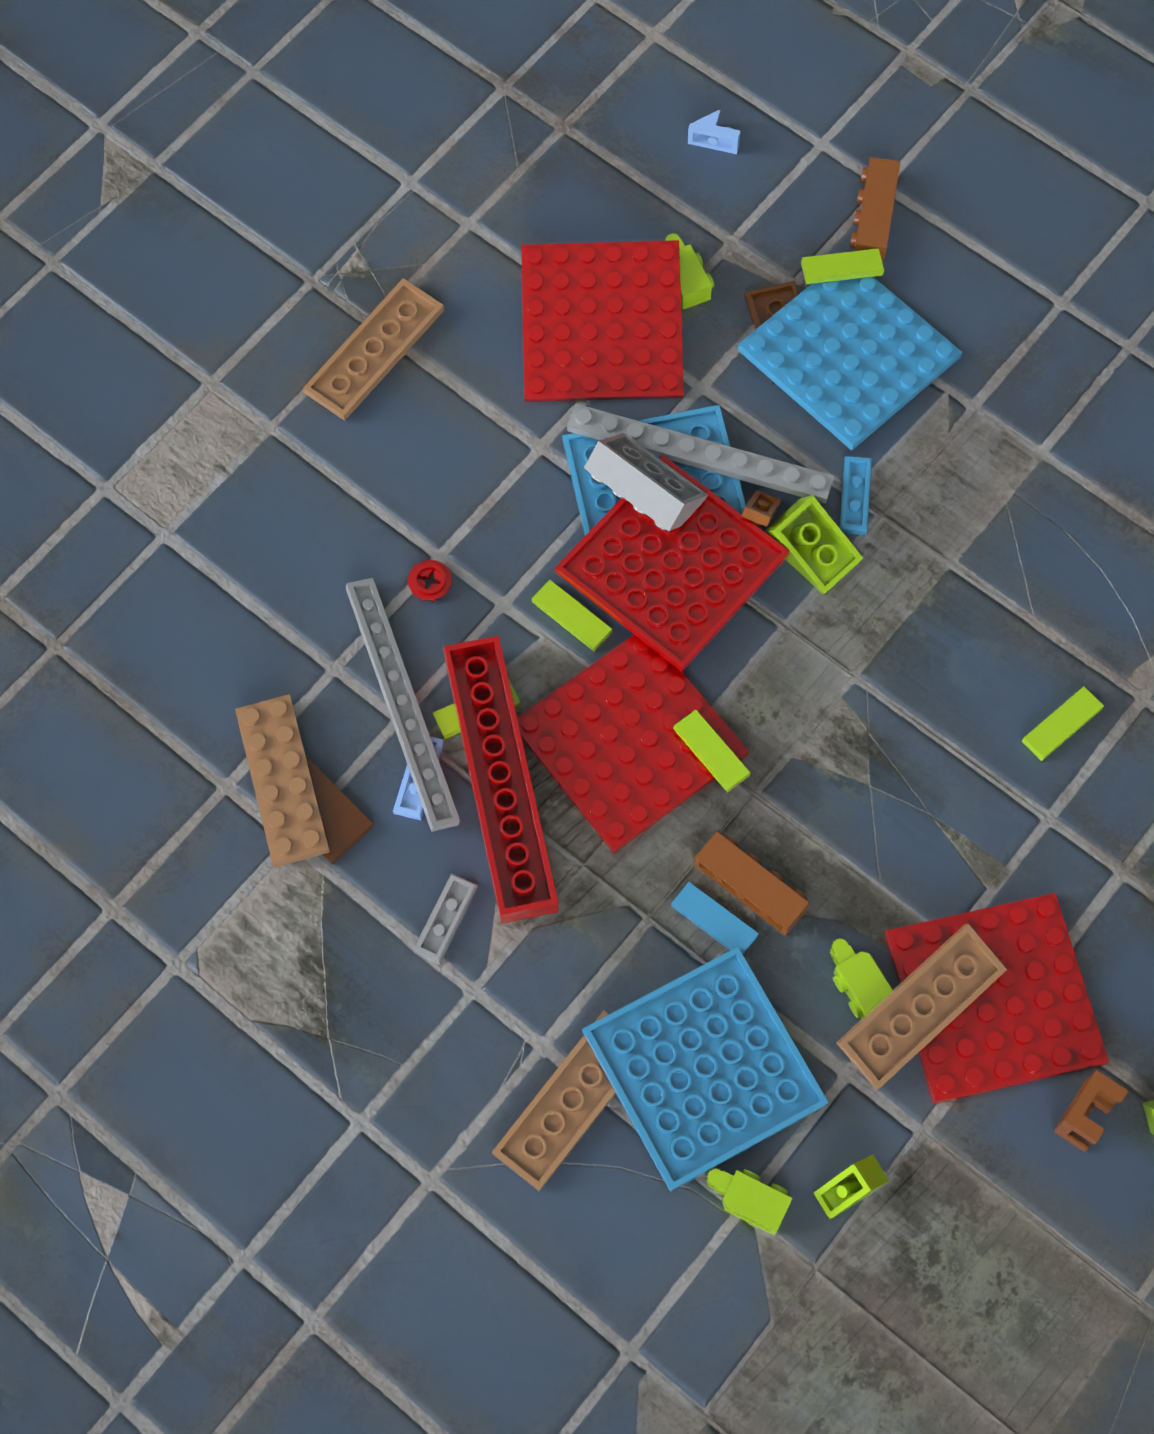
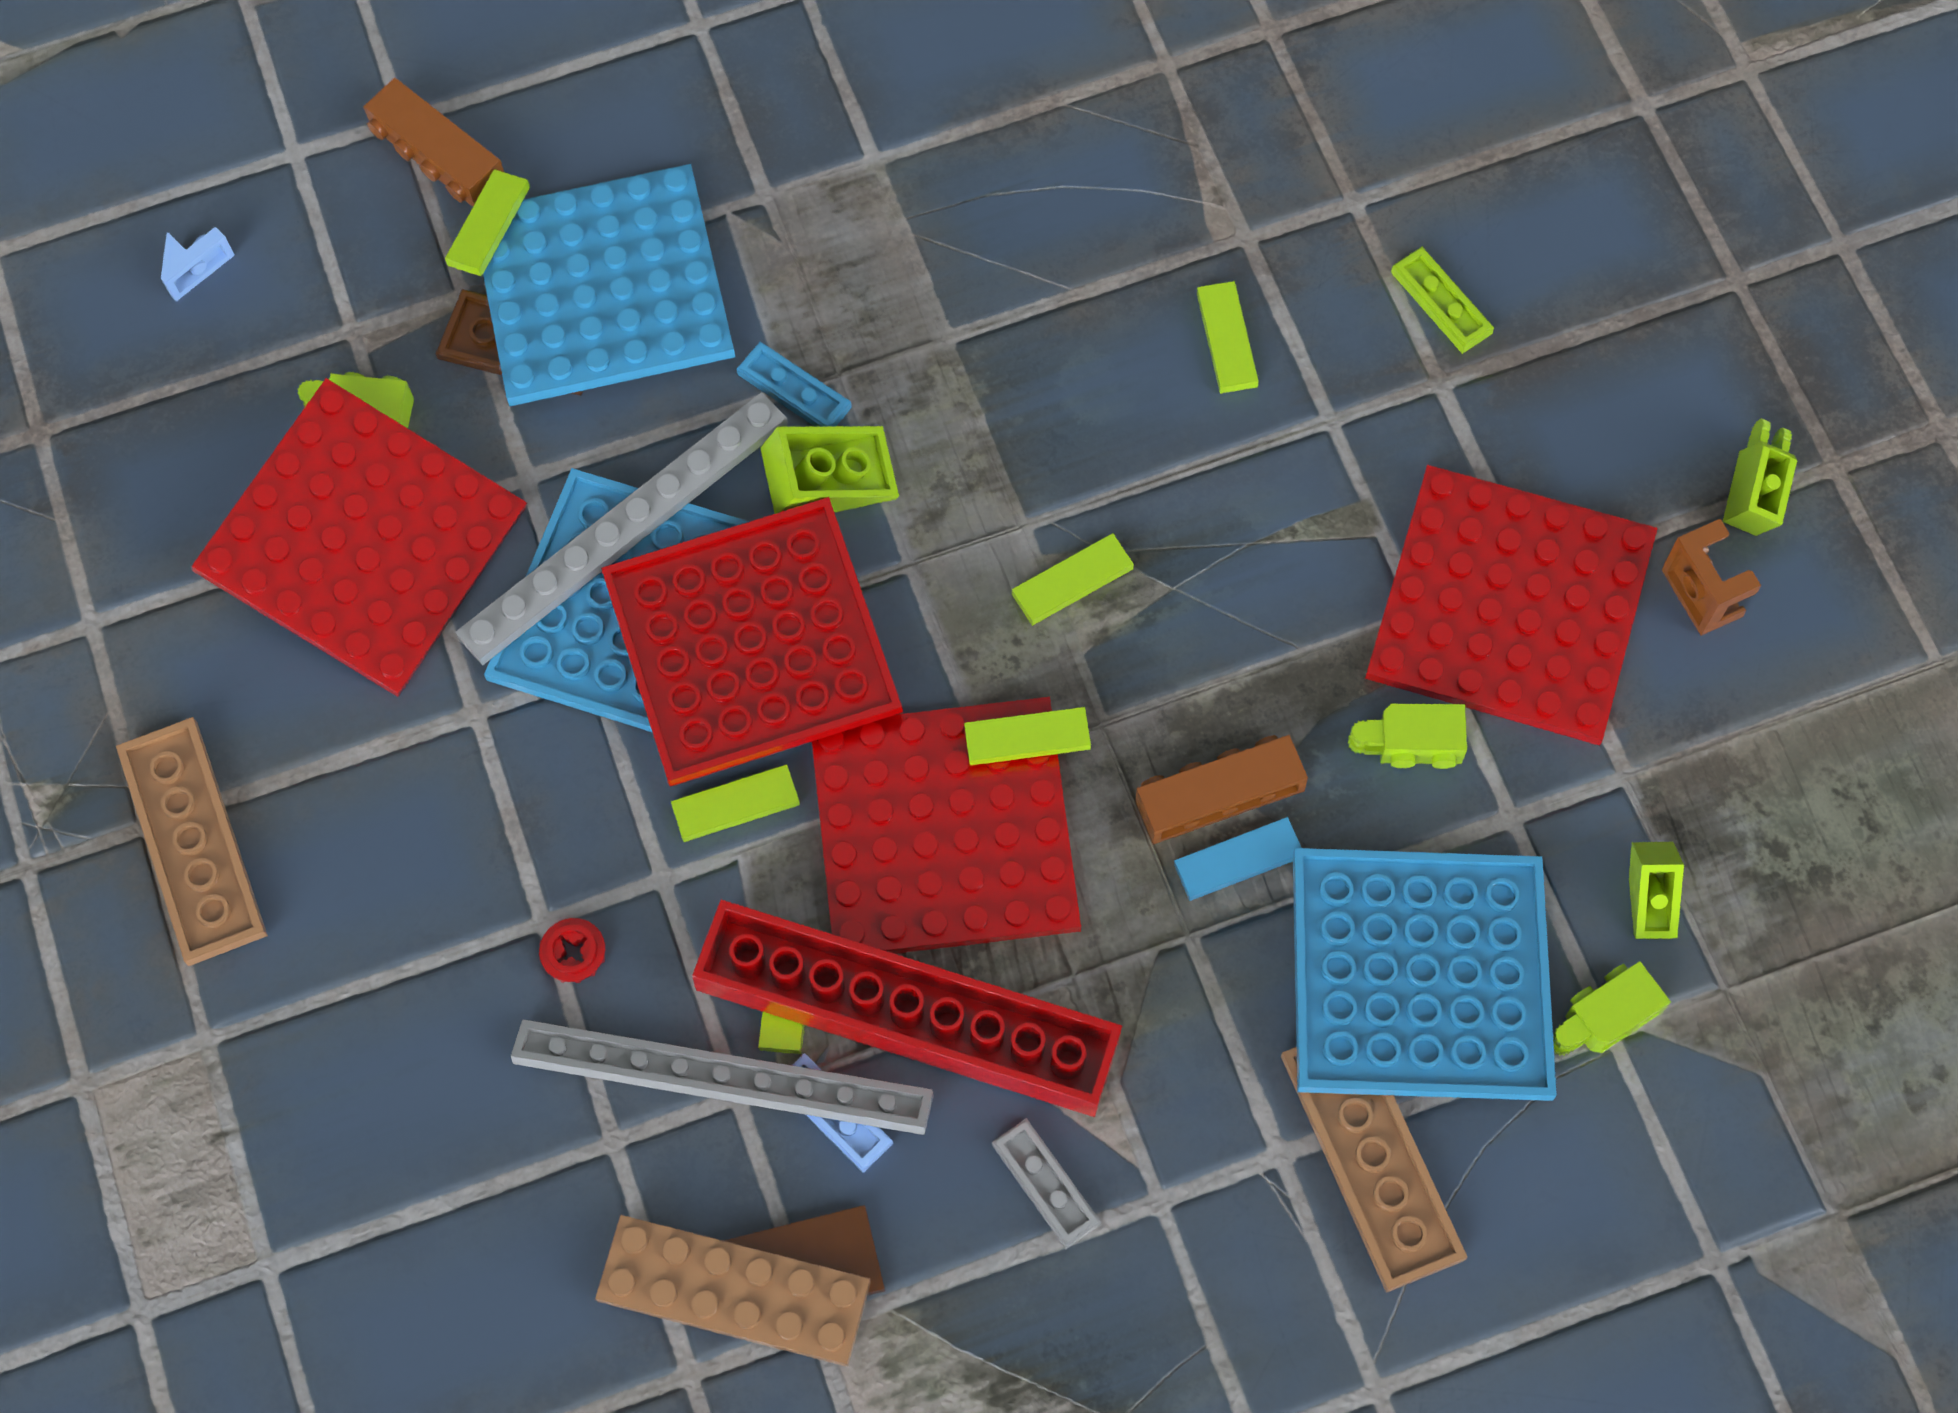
camera: 60 degrees left, 0 degrees up
(644, 481) = (628, 607): slope -> none
(761, 508) = (747, 497): dark orange plate -> none
(835, 723) = (1072, 579): none -> lime tile
(921, 1006) = (1490, 683): medium nougat plate -> none

